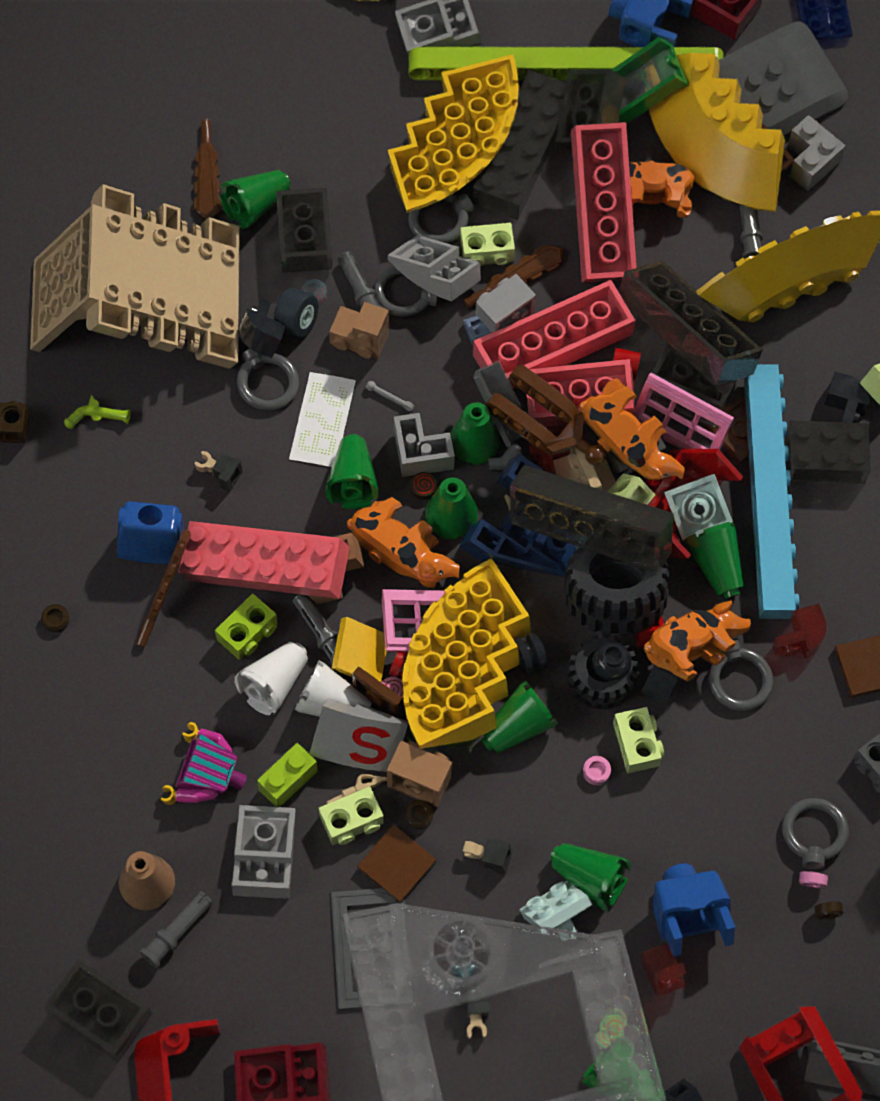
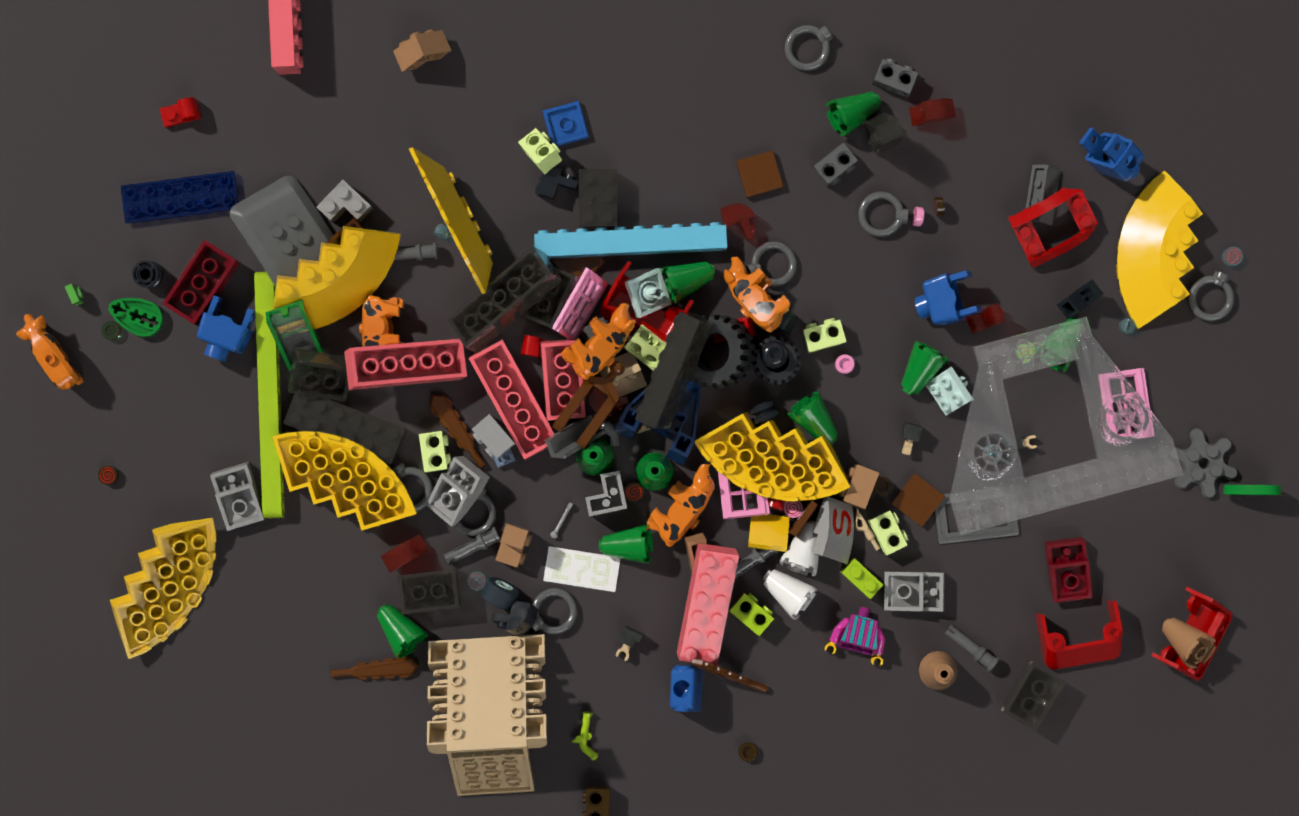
camera: 85 degrees left, 20 degrees up
(356, 203) = (404, 553): none -> clear red brick

